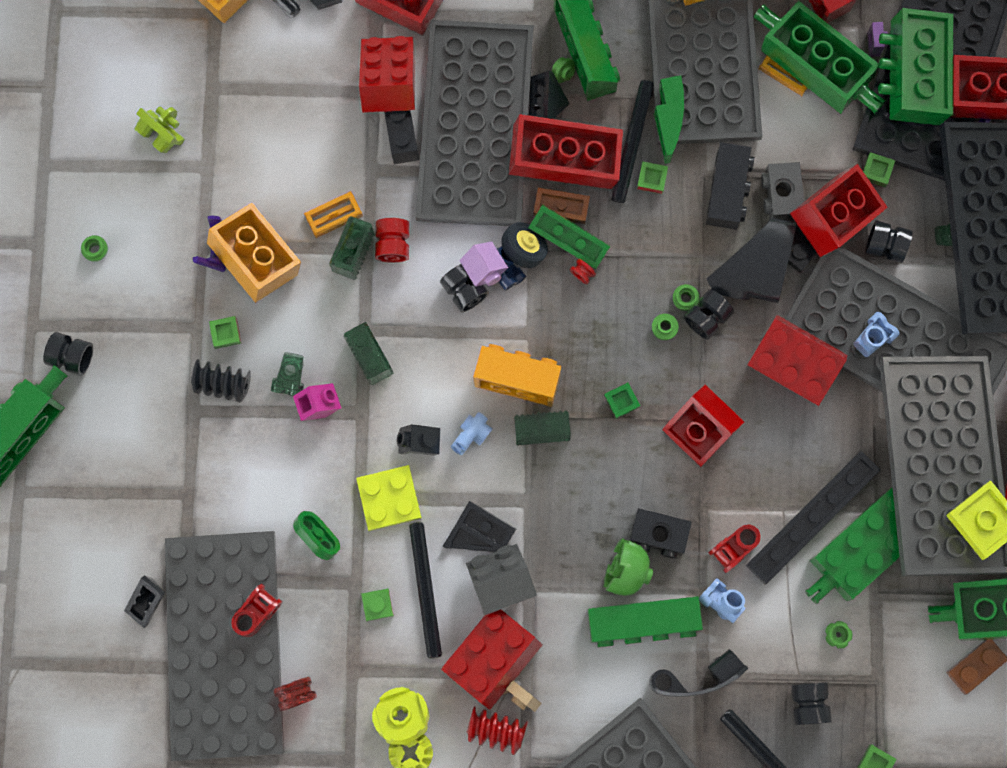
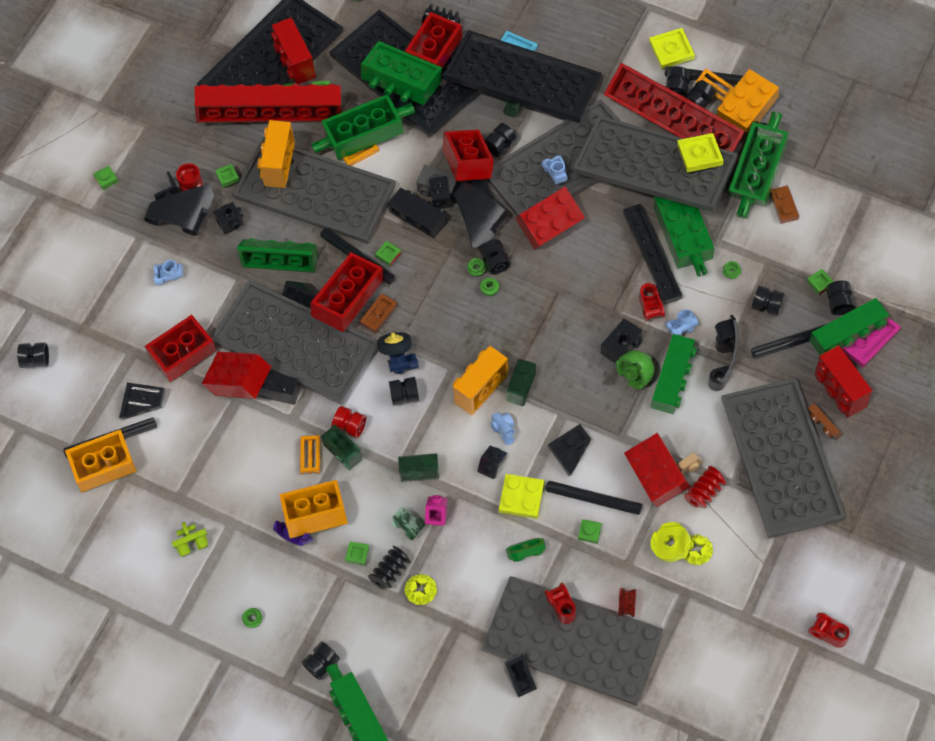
camera: 65 degrees left, 15 degrees down
(225, 426) = (417, 597): none -> neon yellow gear
(483, 264) = (397, 369): lavender brick -> none
(501, 578) = (609, 442): dark grey brick -> none
(563, 69) = (288, 274): bright green plate -> none
(569, 236) = (402, 315): green plate -> none
(582, 271) = (429, 318): red bush -> none
(622, 400) = (525, 330): green plate -> none
(669, 115) = (356, 223): green slope -> none
(703, 425) = (564, 290): red slope -> none
(769, 199) = (440, 192): none -> black bracket
(873, 34) = (366, 93): medium lavender plate -> none
(878, 169) = (450, 124): bright green plate -> none

